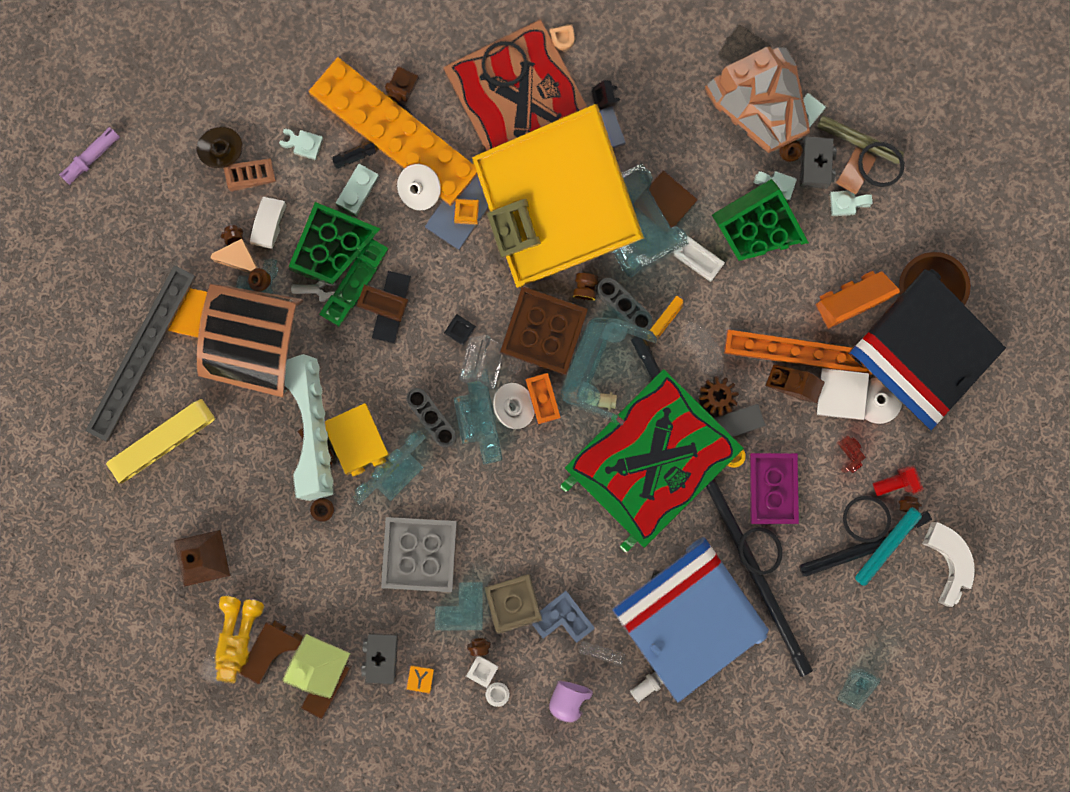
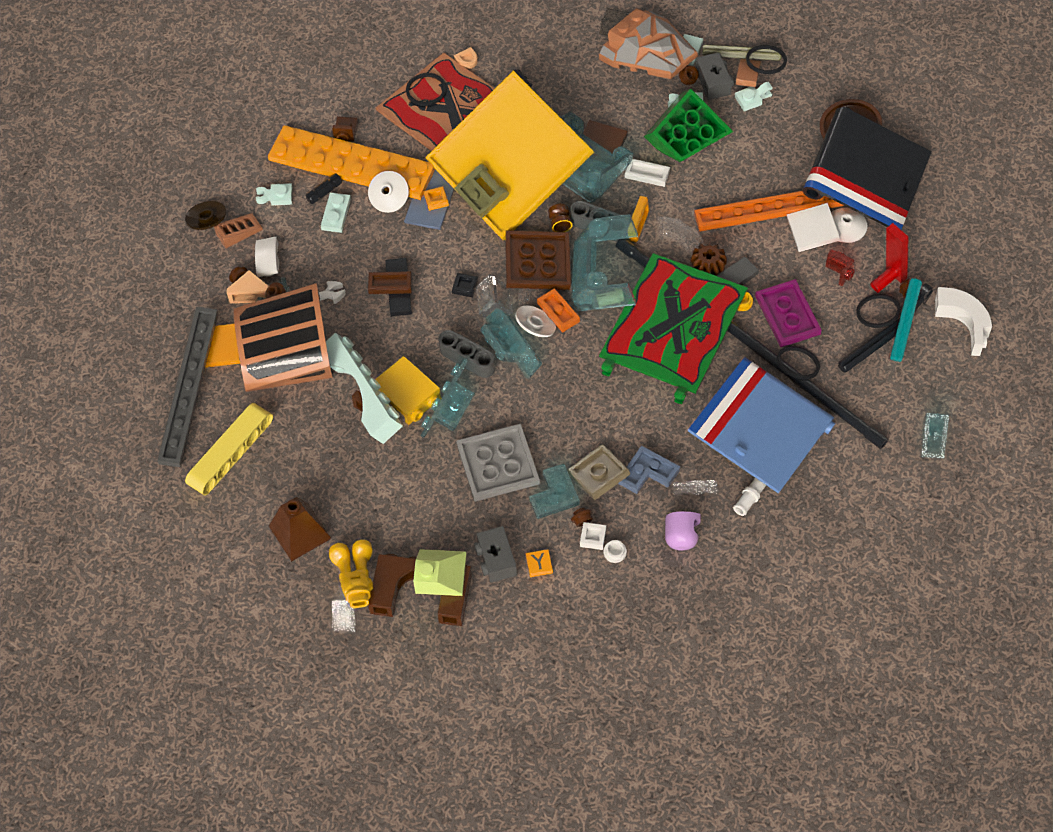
camera: 10 degrees left, 25 degrees down
(86, 158) = (88, 264): lavender pin -> none
(314, 509) = (396, 451): reddish brown plate -> none
(329, 244) = (327, 251): green wedge -> none
(350, 289) = (357, 285): green slope -> none
(795, 383) = (770, 230): reddish brown slope -> none
(856, 298) = (792, 155): orange slope -> none

